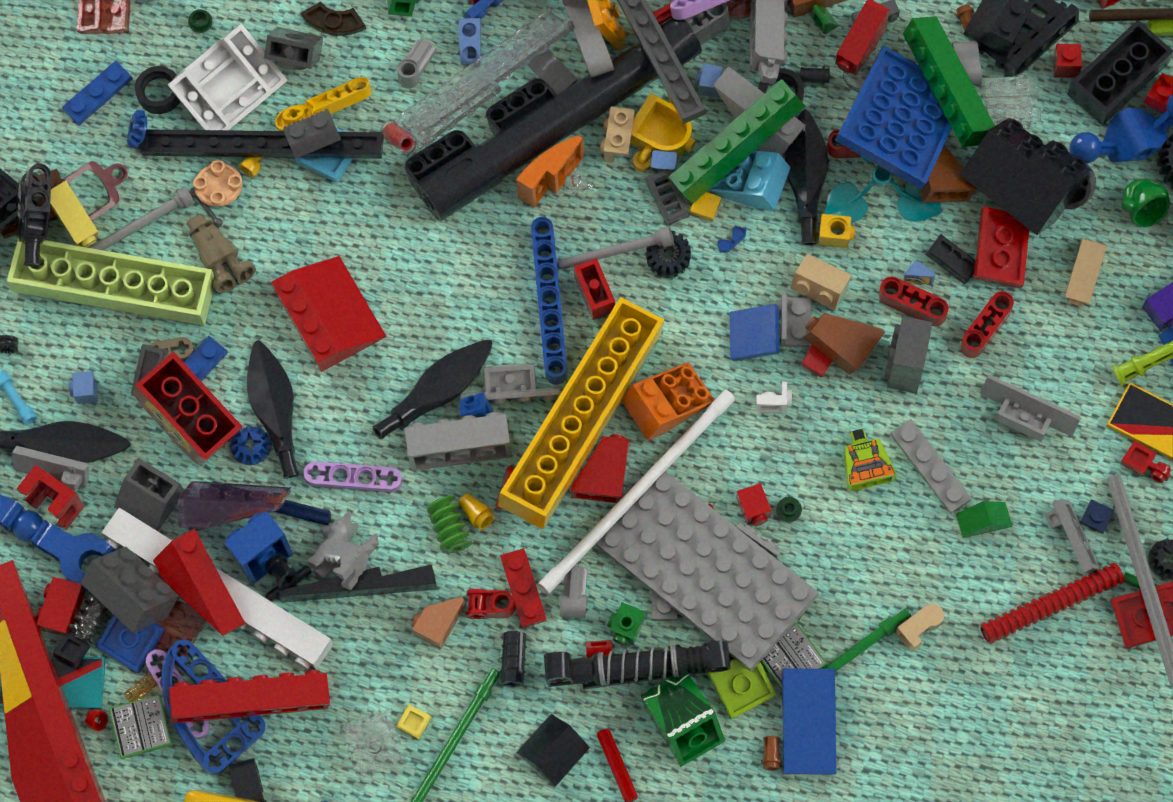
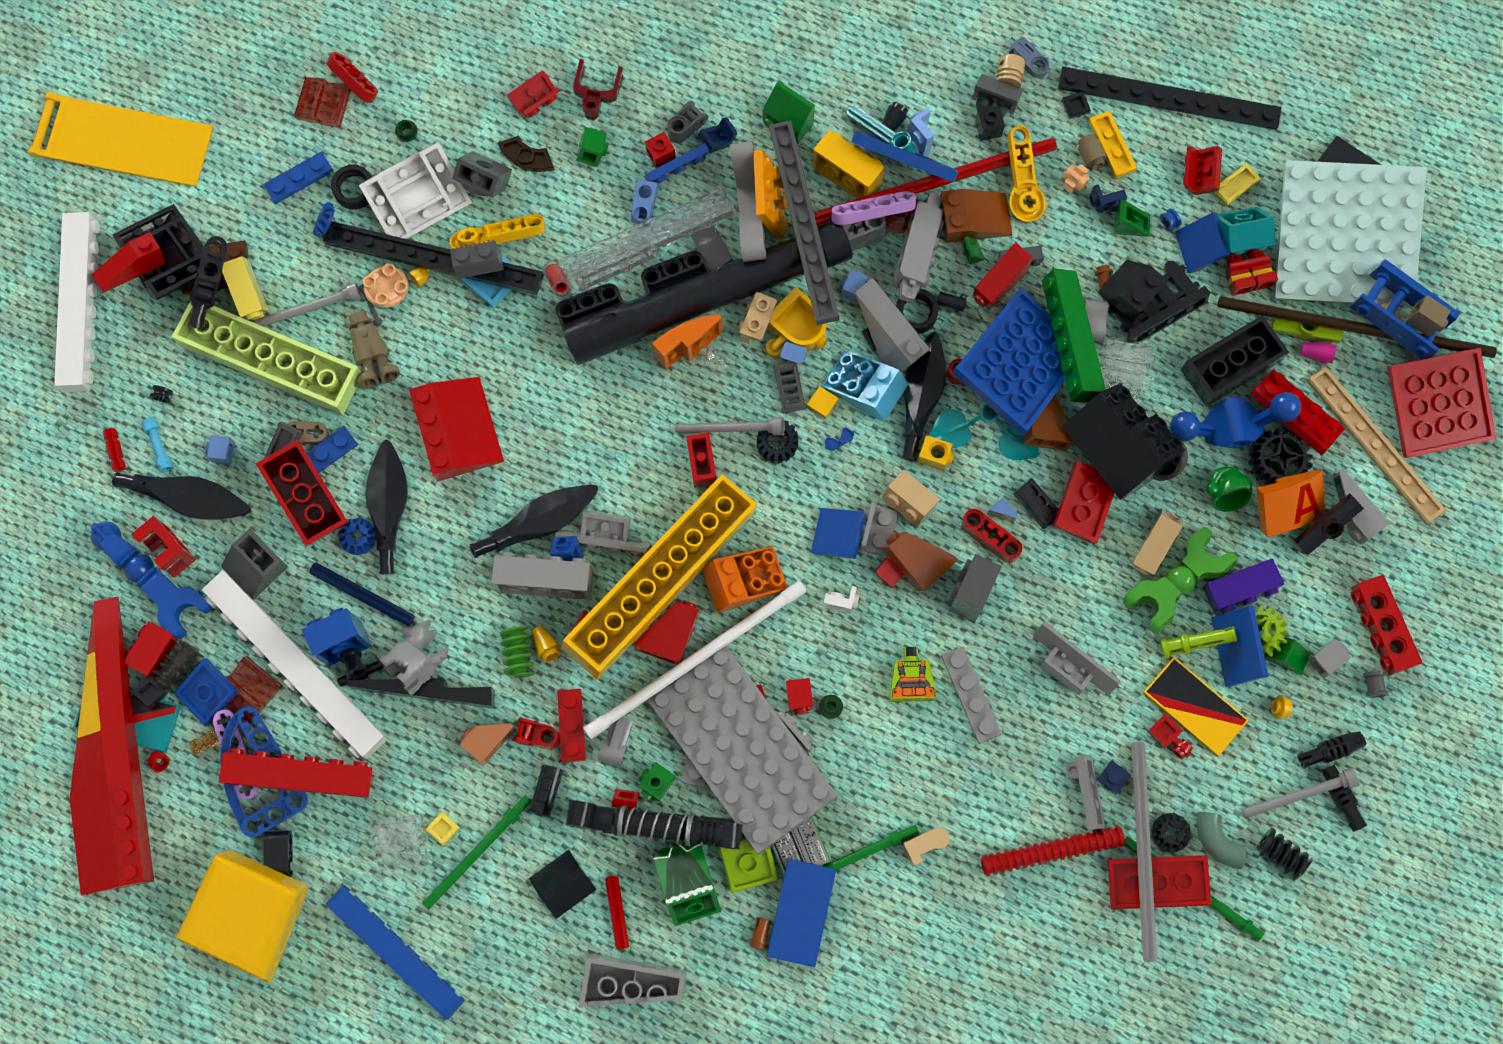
camera: 10 degrees right, 5 degrees up
(68, 471) = (188, 526): light grey hinge -> none
(107, 180) = (286, 260): dark red piece -> none
(129, 589) = (211, 650): dark grey brick -> none
(140, 726) = (195, 777): light grey tile -> none
(193, 576) = (274, 652): red wedge -> none
(215, 504) = (314, 587): clear purple slope -> none
(352, 480) = (442, 586): lavender beam -> none
(416, 63) = (591, 211): light grey piece -> none
(546, 289) = (655, 450): blue beam -> none
(737, 141) = (863, 351): green brick -> none
(983, 518) = (1008, 756): green slope -> none
(999, 317) = (1067, 569): red beam -> none
(1067, 60) = (1188, 338): red brick -> none
(1117, 304) = (1180, 580): none -> bright green piece

